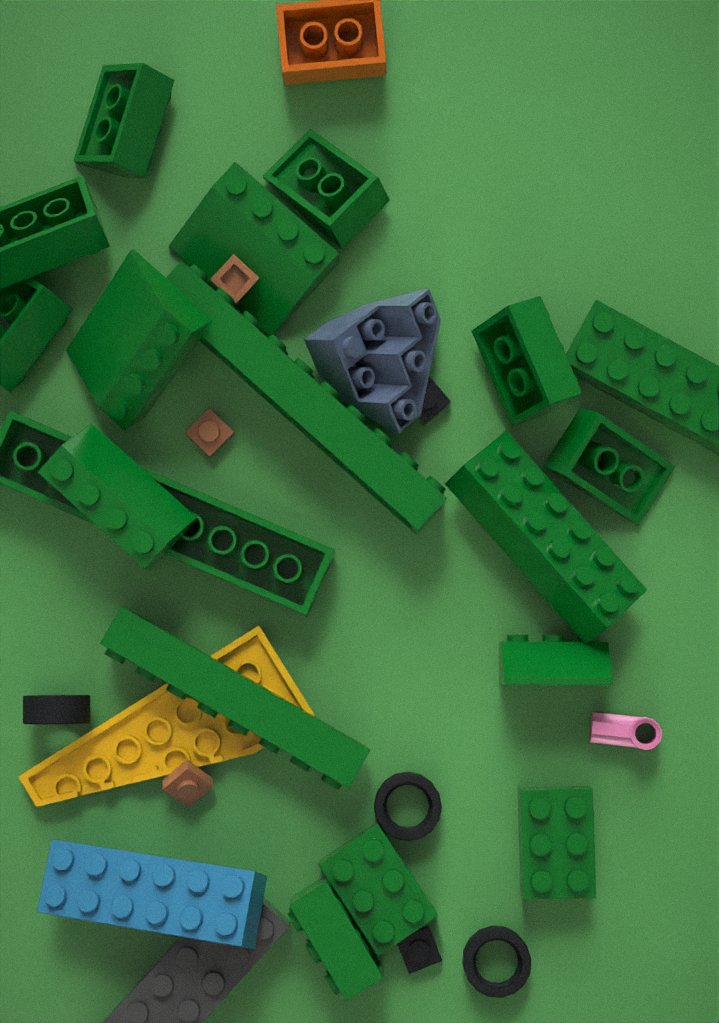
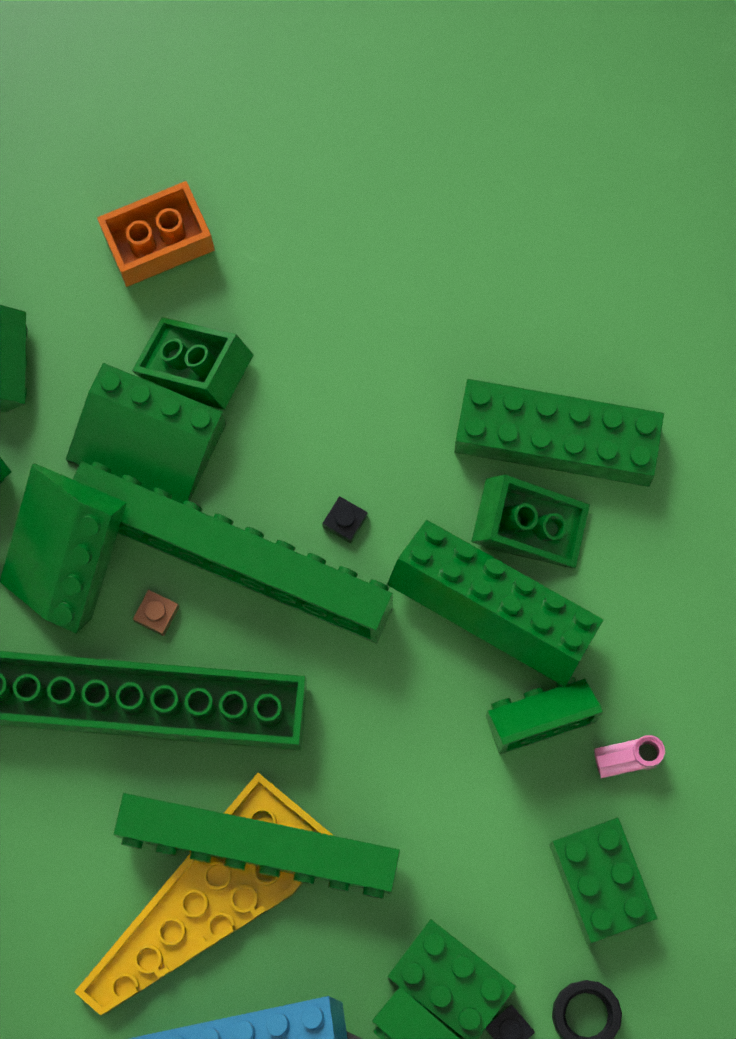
camera: 20 degrees left, 10 degrees down
(56, 709) = (91, 913): black tyre -> none
(117, 496) = (88, 691): green slope -> none
(187, 783) = (238, 944): nougat plate -> none
(234, 278) = (135, 463): nougat plate -> none
(380, 356) = (291, 491): sand blue brick -> none
(407, 833) = (476, 883): black tyre -> none
(526, 360) = (423, 452): green brick -> none

